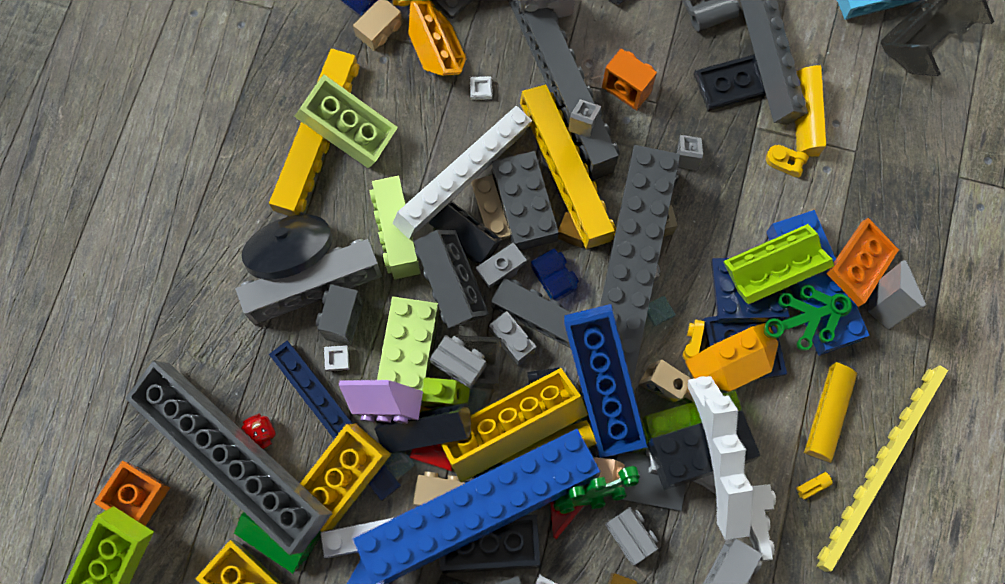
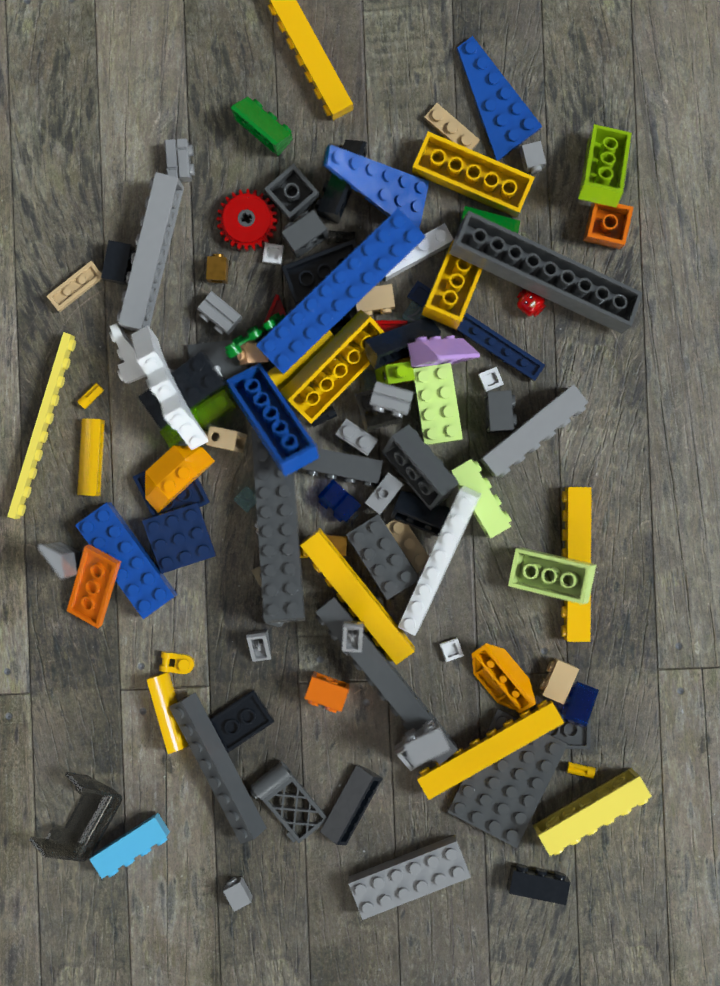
camera: 170 degrees right, 15 degrees up
(287, 247) = (561, 453): black dish -> none
(695, 332) = (212, 488): yellow plate -> none
(778, 264) = (161, 559): lime slope -> none
(811, 315) = (124, 524): green plant -> none

